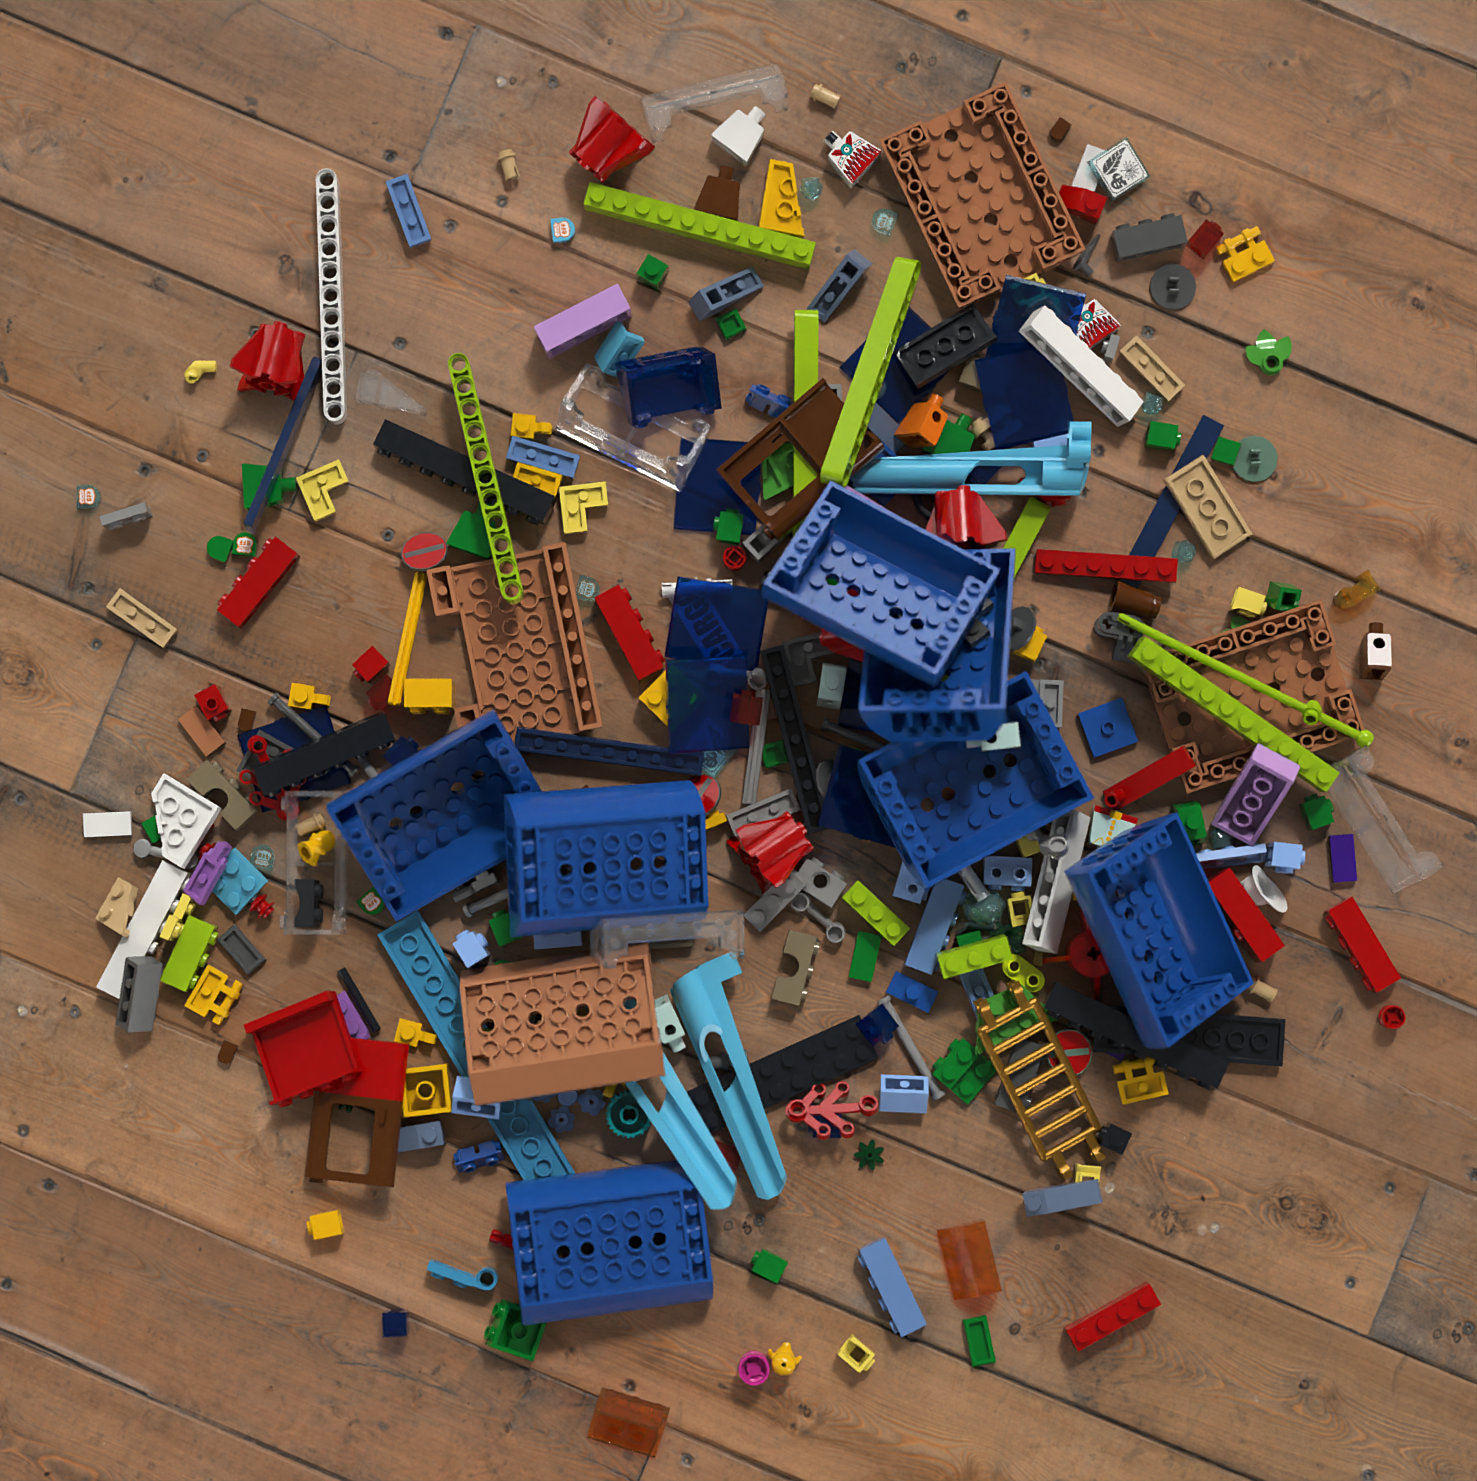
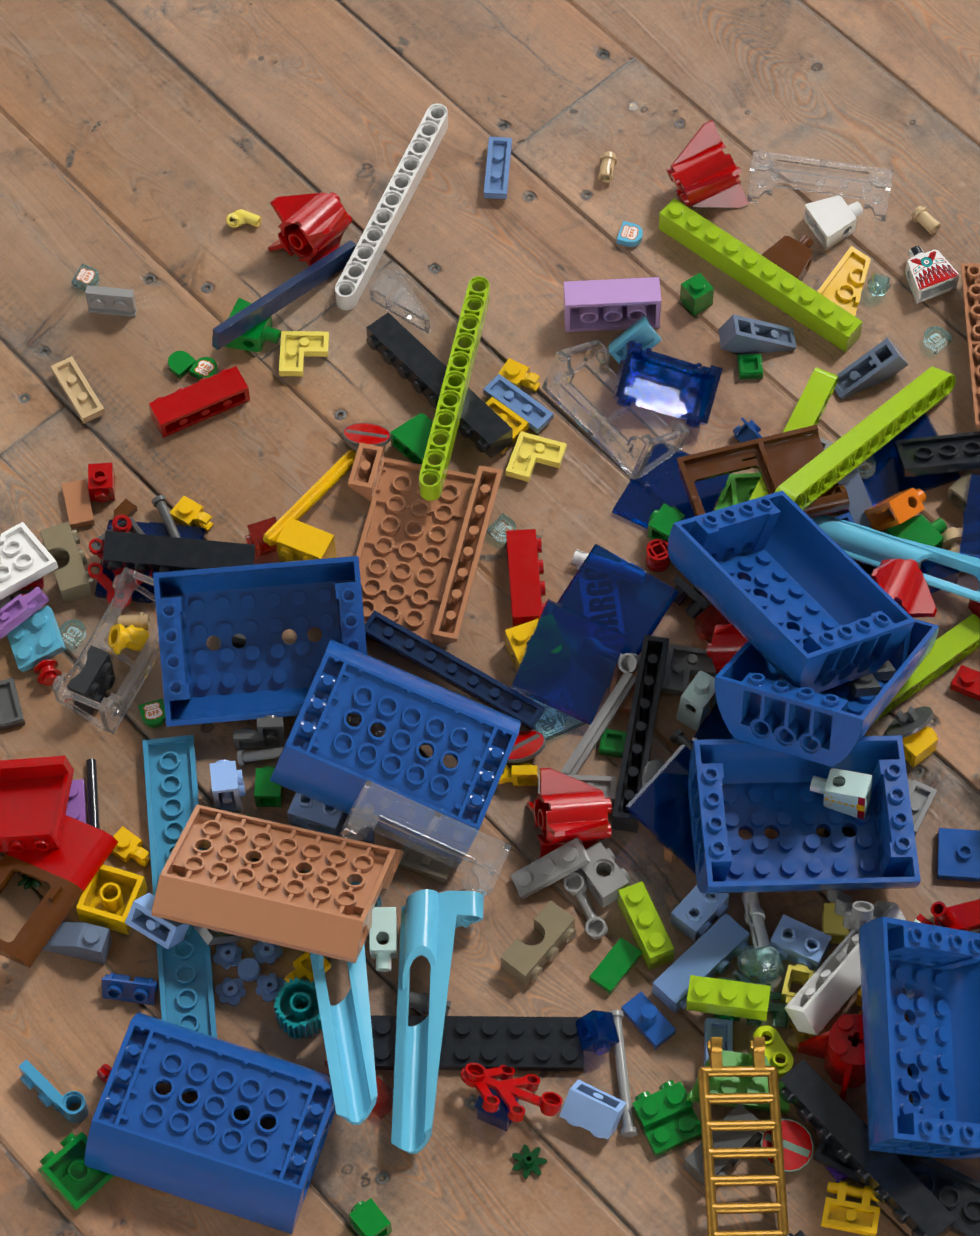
camera: 30 degrees right, 25 degrees down
(370, 665) = (264, 505): red brick -> none
(746, 708) = (605, 679): clear red brick -> none

